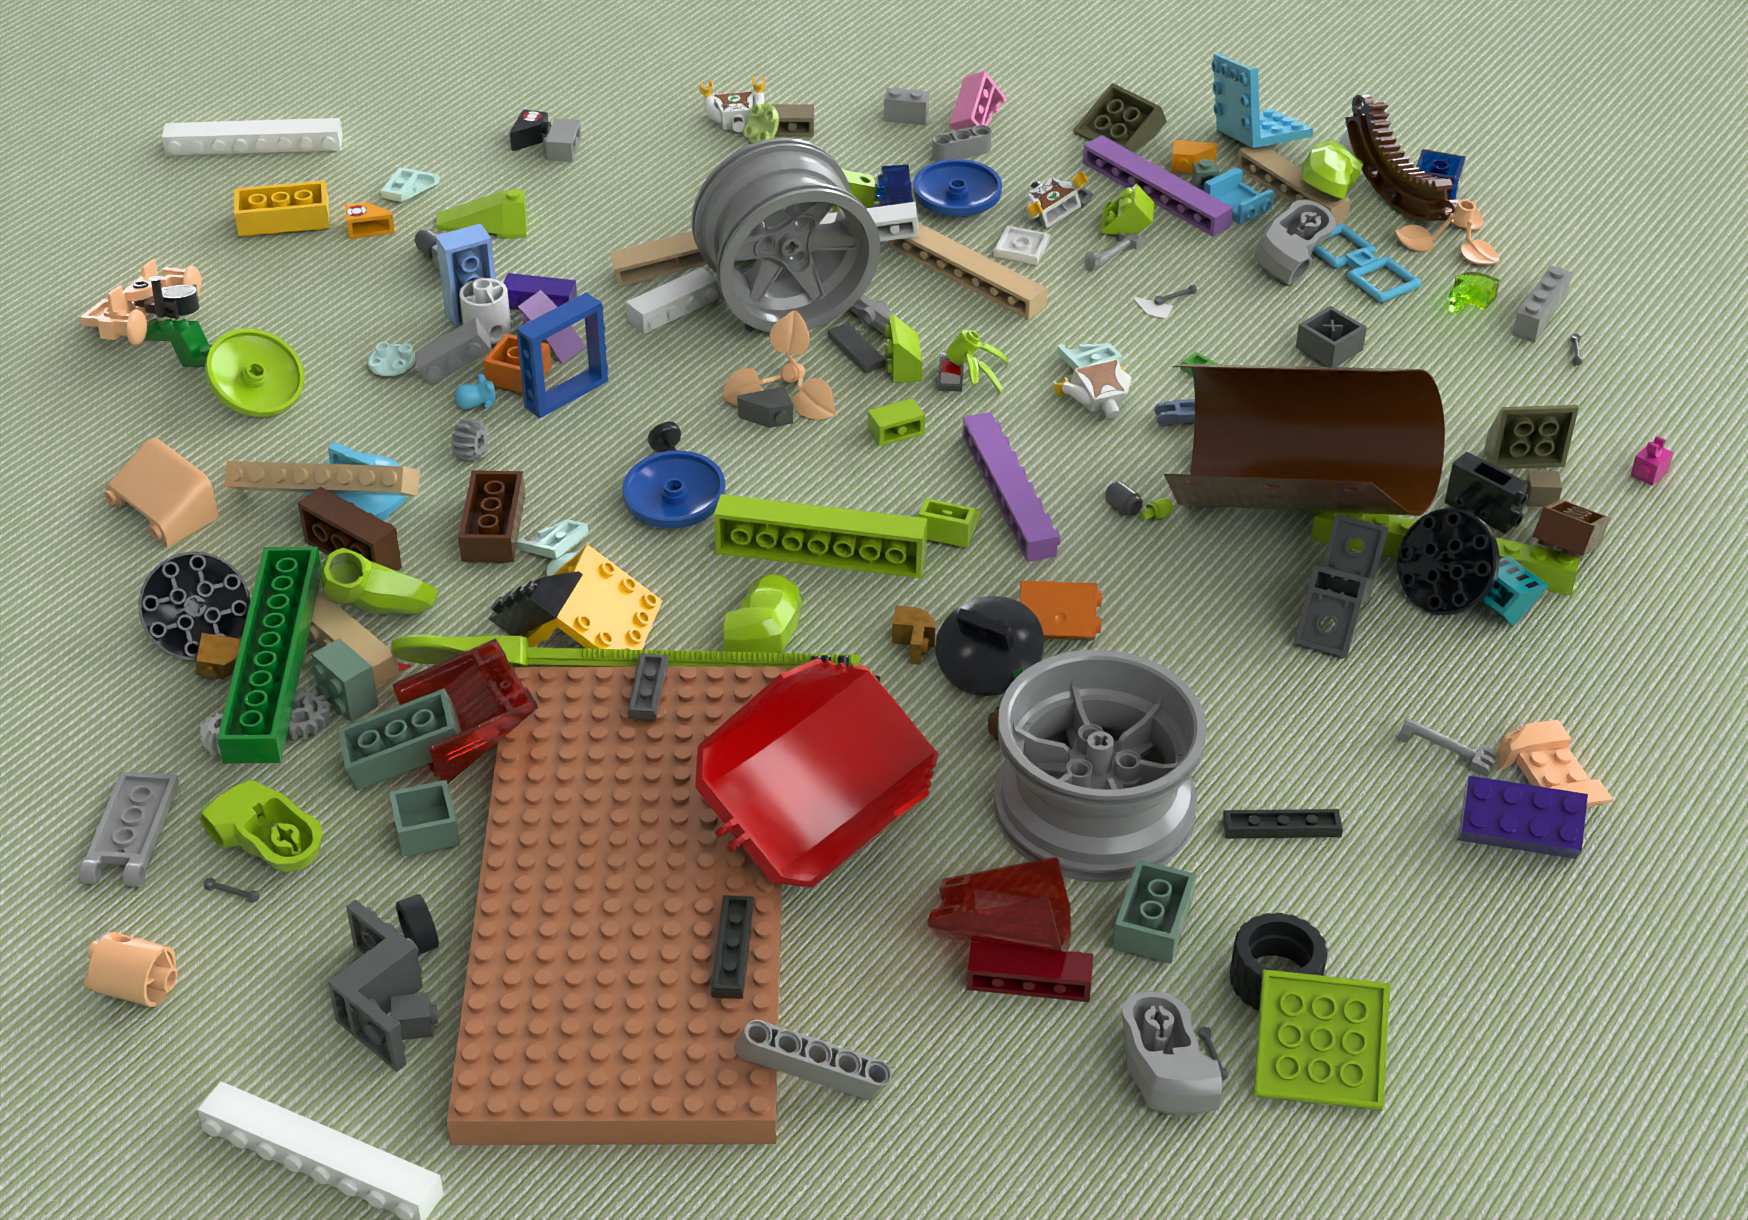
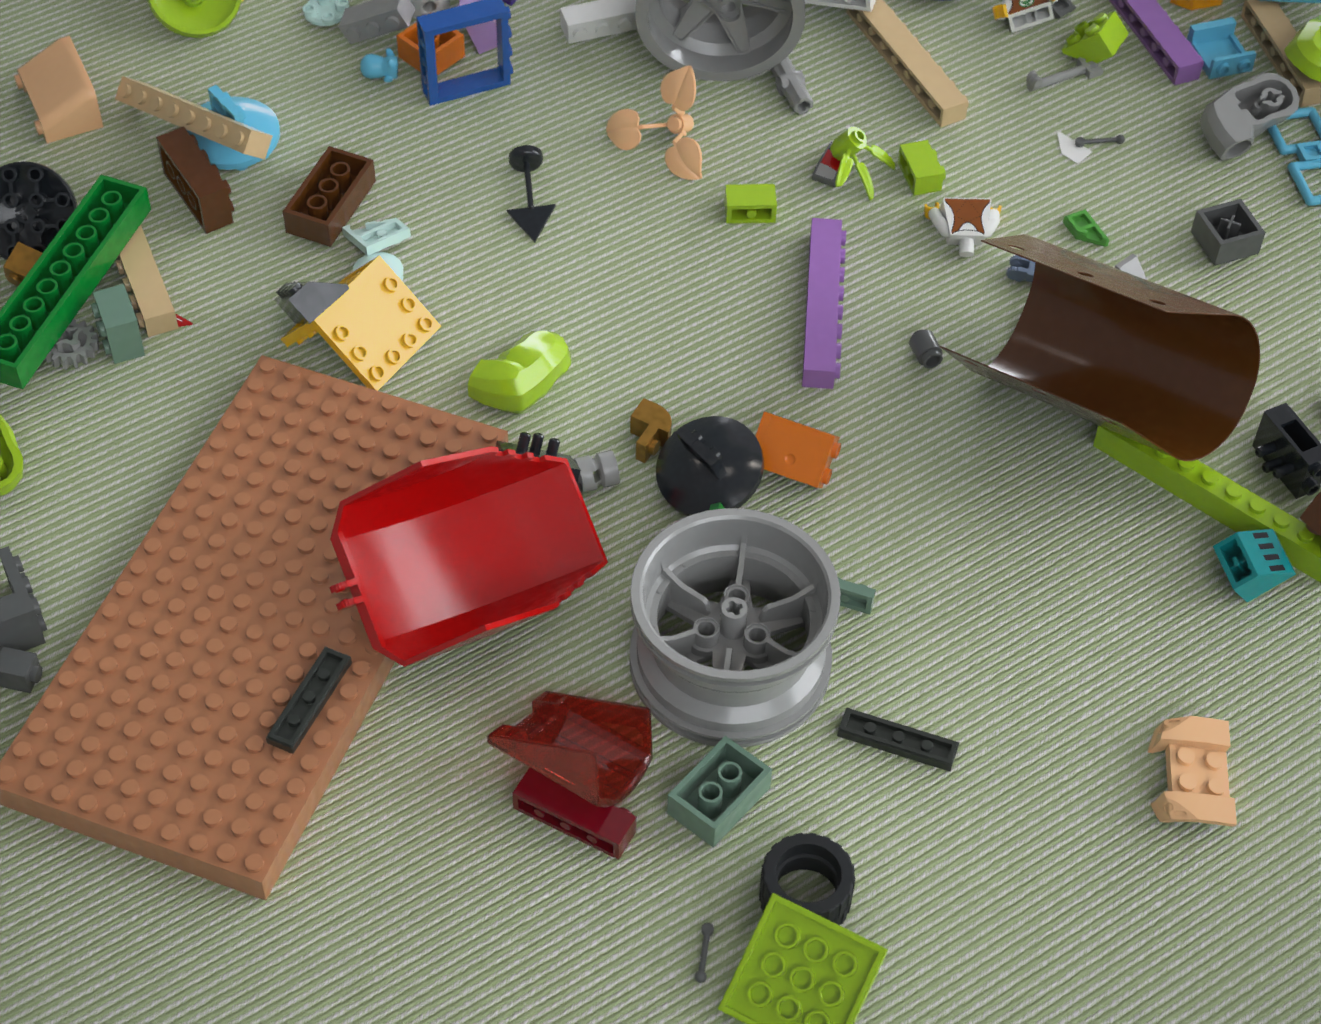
camera: 20 degrees right, 10 degrees up
(373, 587) = (182, 239): lime piece -> none
(397, 738) = (134, 398): sand green brick -> none
(417, 923) = (60, 584): black tyre -> none
(424, 818) = (119, 481): sand green piece -> none
(436, 649) = (276, 346): lime piece -> none
(469, 439) = (349, 112): light grey gear -> none
(487, 703) = (198, 385): clear red windscreen -> none
(648, 687) = (369, 414): dark grey tile -> none
(673, 489) = (505, 216): blue dish -> none
(766, 407) = (637, 153): dark grey slope -> none
(798, 1061) = (317, 821): light grey beam -> none
(820, 536) = (613, 305): lime brick -> none
(856, 348) = (757, 113): dark grey tile -> none
(892, 675) = (605, 467): none -> light grey wheel
(902, 352) = (793, 130): lime slope -> none
(949, 522) = (742, 323): lime slope -> none
(1022, 245) = (975, 45): white tile -> none
(1033, 354) = (921, 167): none -> lime brick
(1088, 354) = (976, 185): light aqua wing -> none
(1157, 509) = (952, 370): lime cylinder -> none
(1166, 1056) = (648, 941): light grey piece -> none
(1203, 172) = (1196, 13): sand green brick -> none
(1341, 585) = (1083, 508): dark grey bracket -> none
(1448, 561) = (1202, 517): black bracket -> none
(1481, 759) = (1131, 736): light grey hinge -> none
(1523, 817) = (1131, 814): dark purple brick -> none

